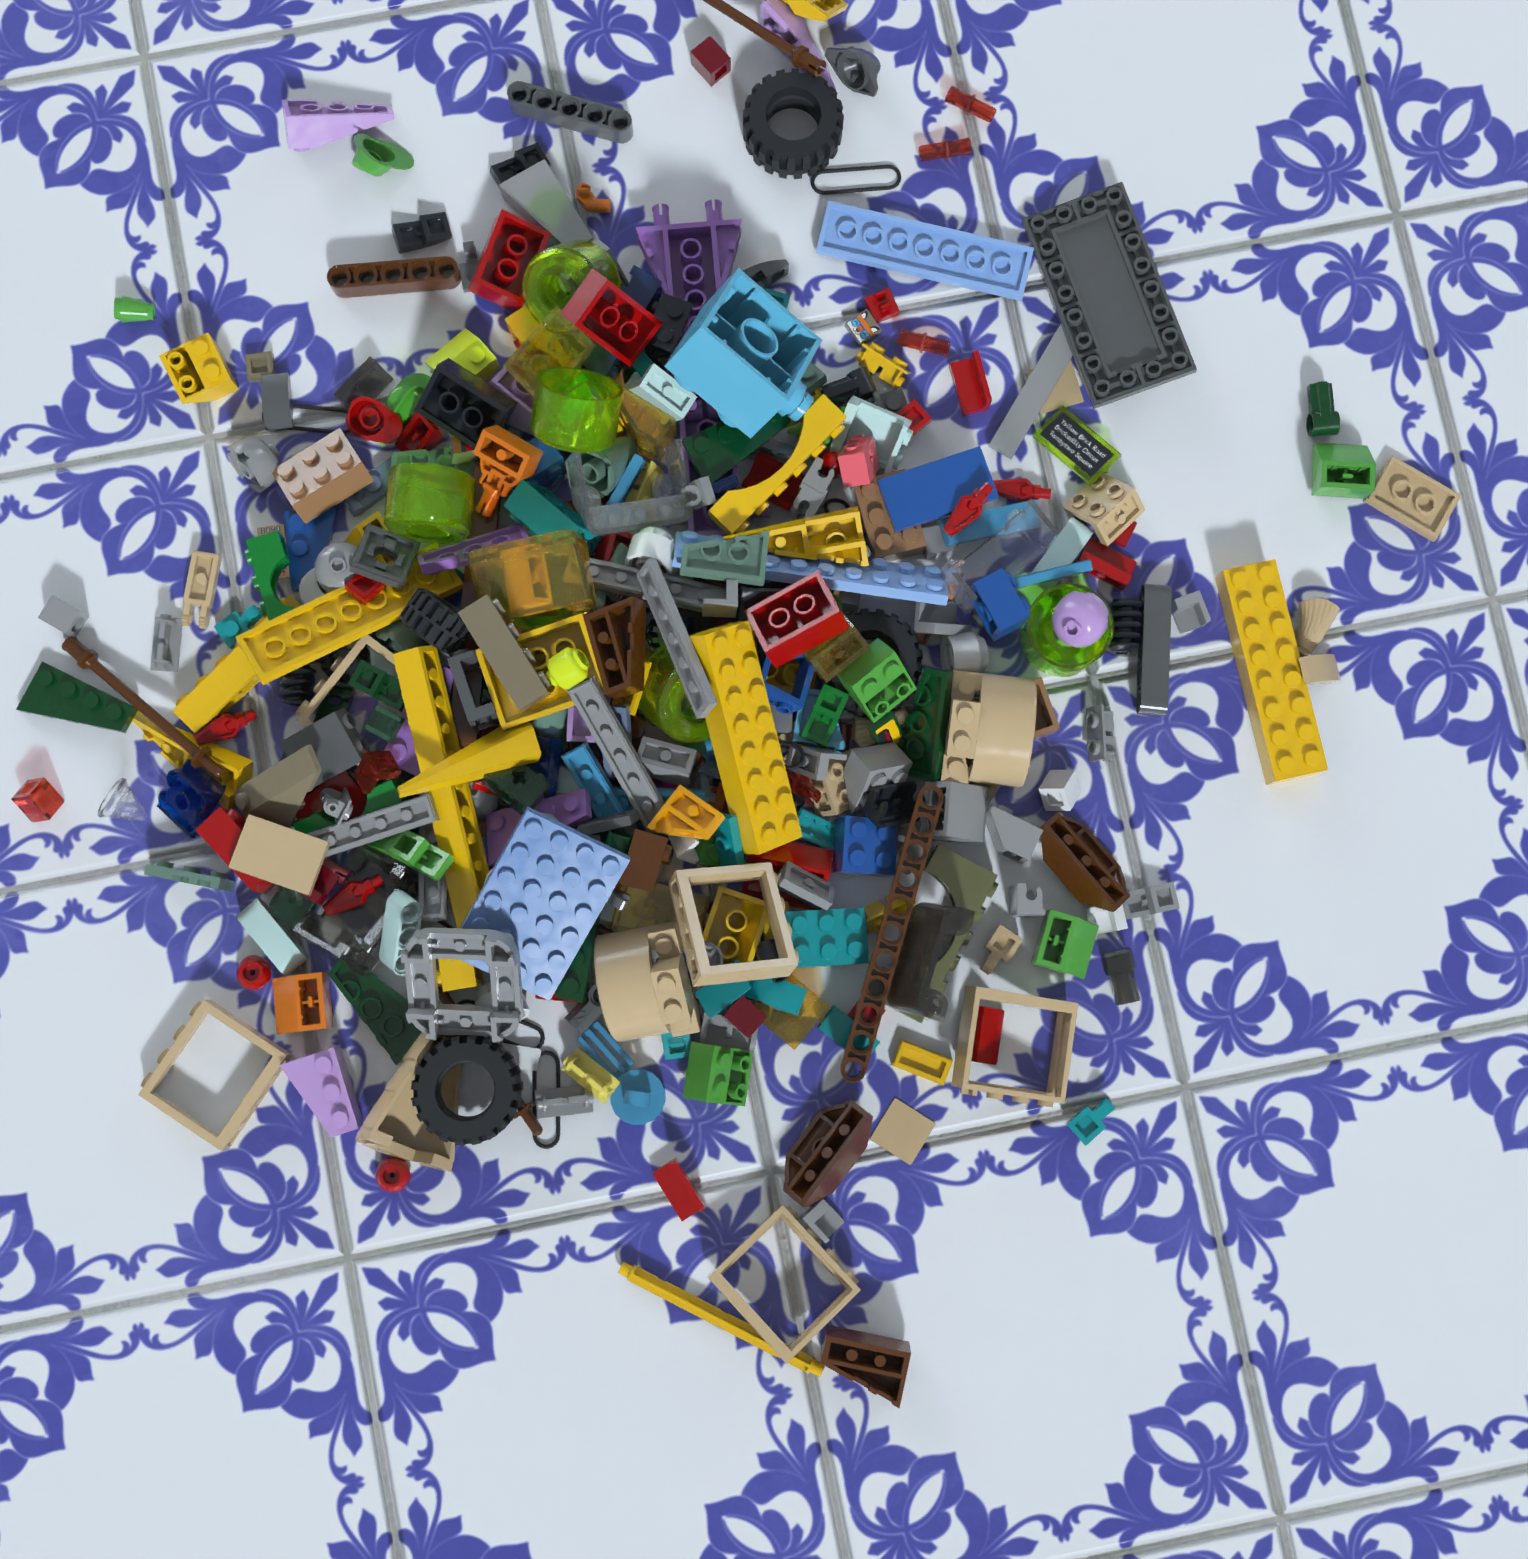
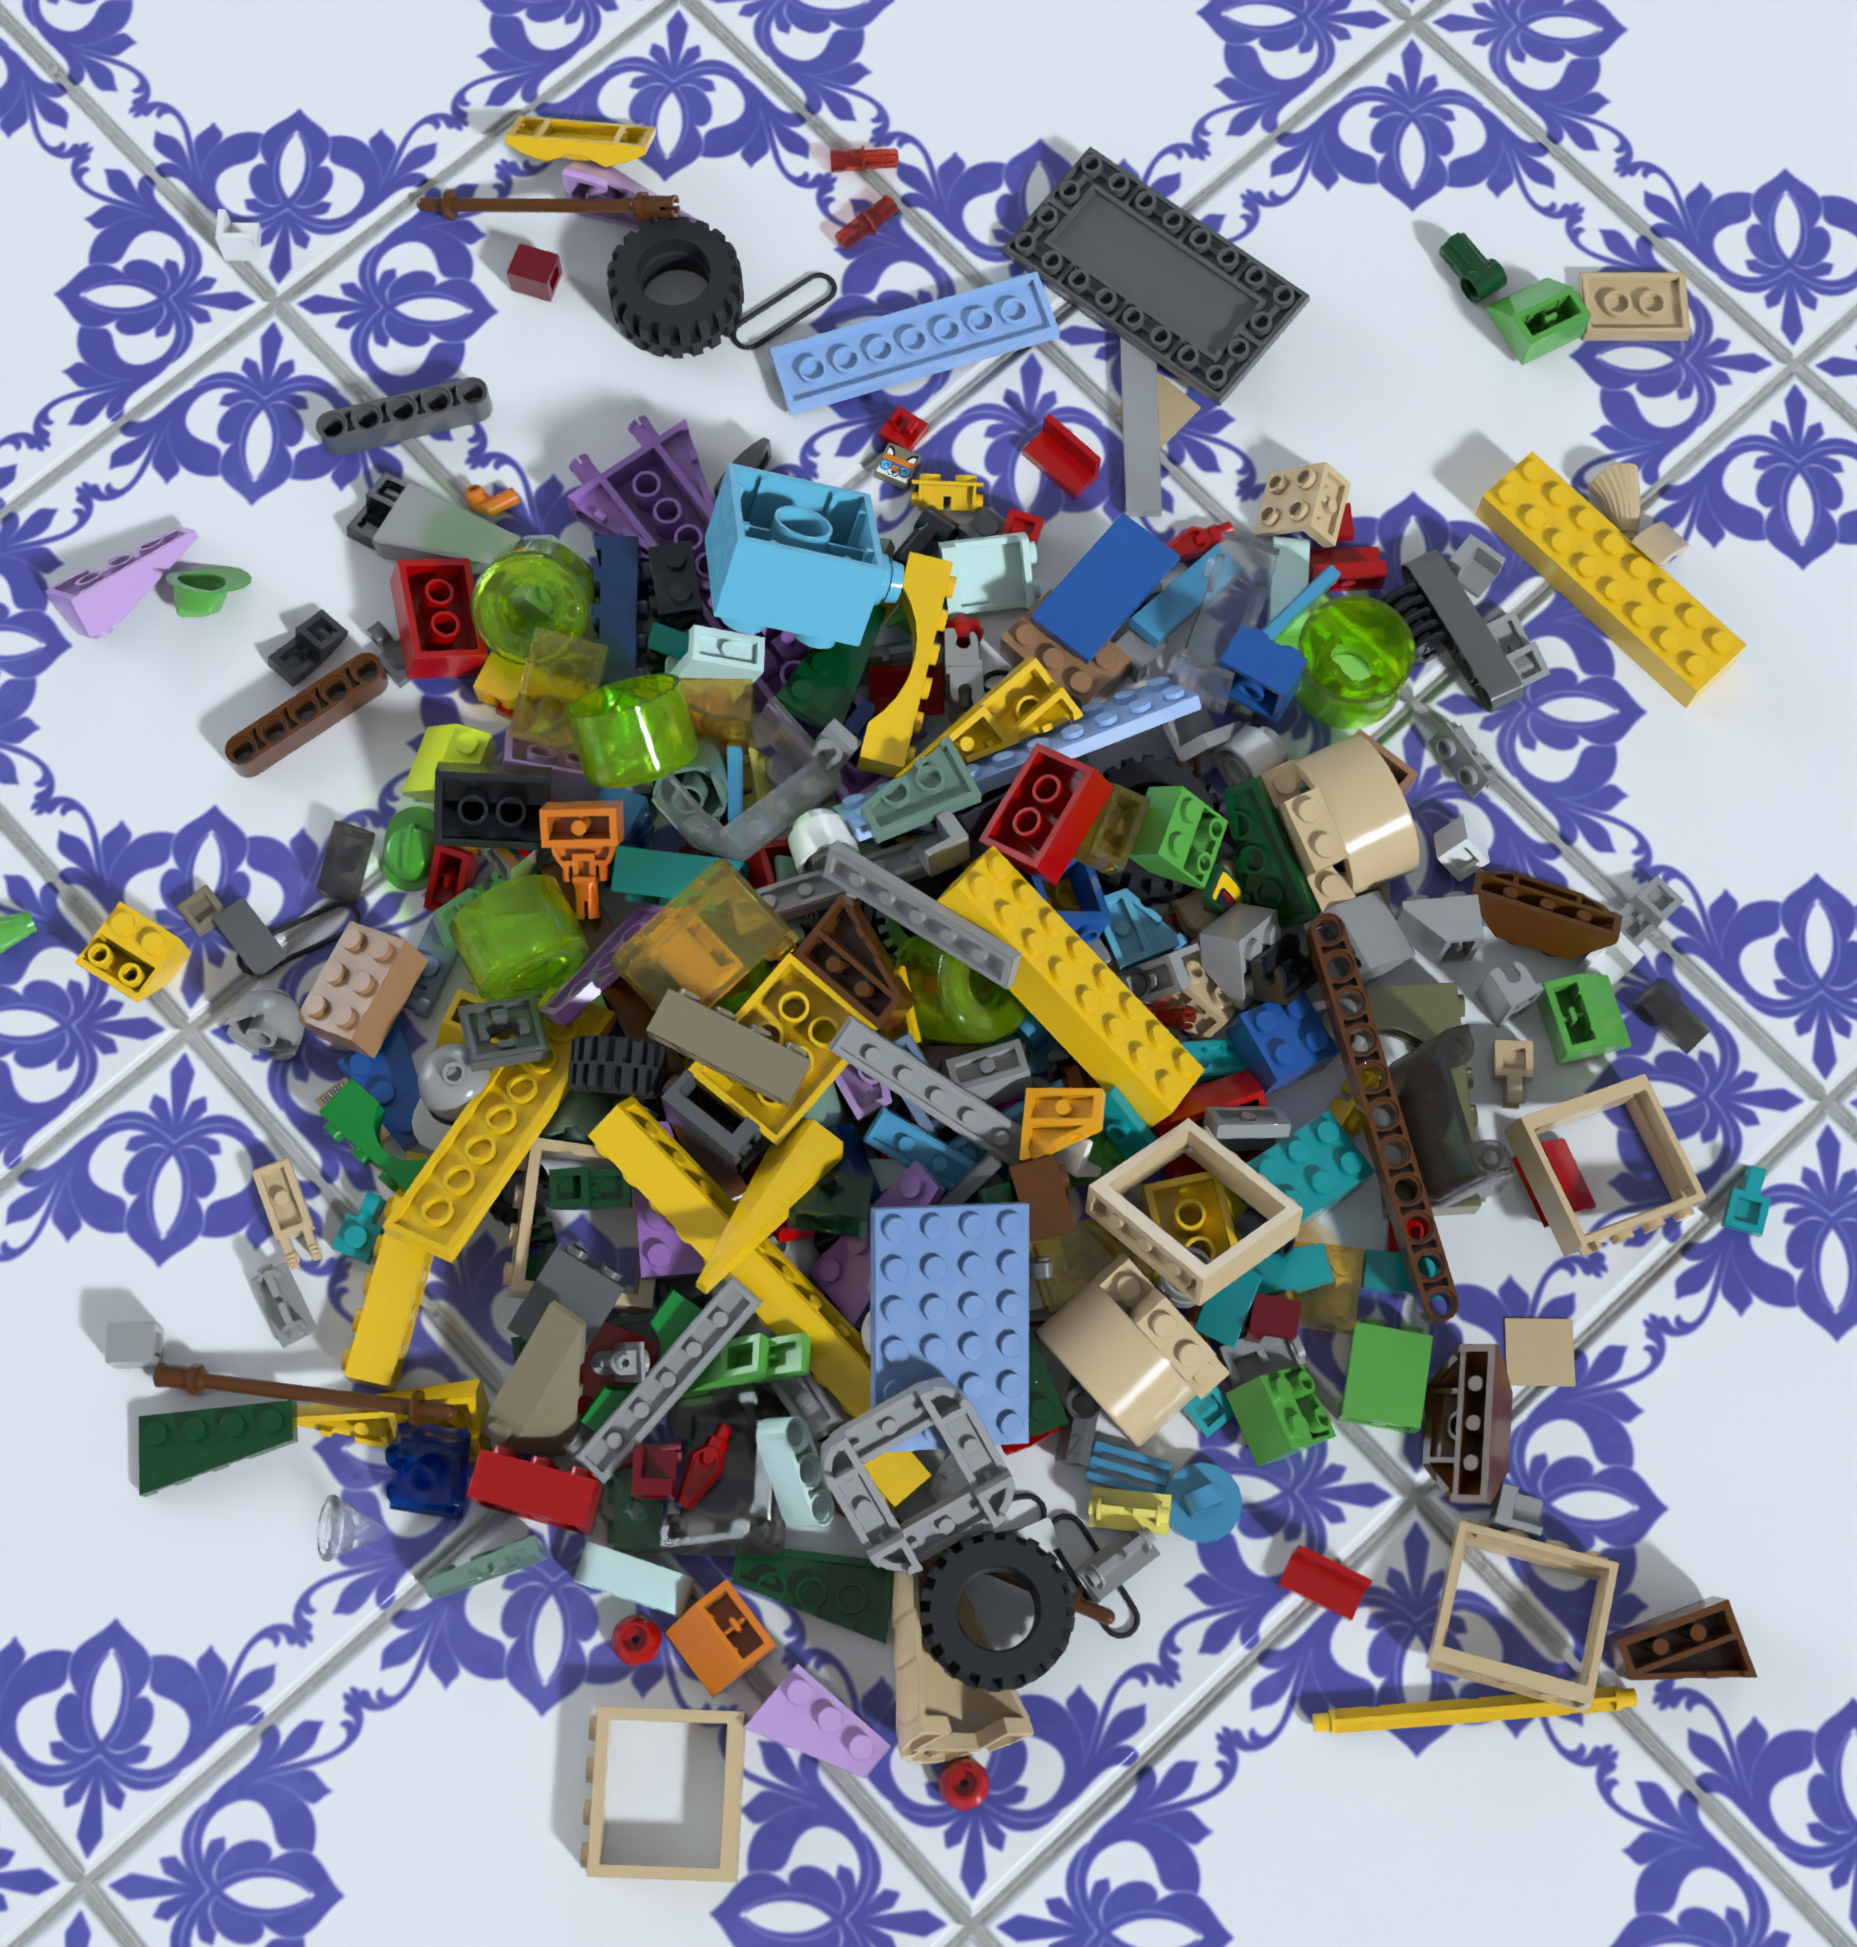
camera: 25 degrees left, 10 degrees down
(38, 799) = (234, 1589): clear red panel -> none
(223, 727) = (418, 1360): red piece -> none
(279, 855) = (591, 1461): tan tile -> none
(296, 685) = (479, 1260): black piece -> none
(363, 588) = (500, 1083): red tile -> none
(373, 421) = (384, 891): red piece -> none
(375, 767) = (643, 1290): clear red panel -> none
(384, 723) = (621, 1232): clear green slope -> none
(568, 668) = (815, 1022): neon yellow head -> none
(611, 317) = (610, 603): red brick -> none
(796, 1089) = (1386, 1376): none -> bright green panel
(825, 715) = (1141, 915): green slope -> none
(855, 68) = (709, 191): dark grey hat -> none
(858, 461) = (992, 609): coral brick -> none
(922, 1062) = (1509, 1256): yellow tile -> none
(923, 342) = (977, 444): clear red axle -> none
(967, 509) = (1155, 589): red piece -> none
(1076, 445) = (1226, 457): piece -> none
(1080, 619) = (1363, 636): lavender cylinder -> none
(1181, 682) = (1522, 654): none -> light grey slope

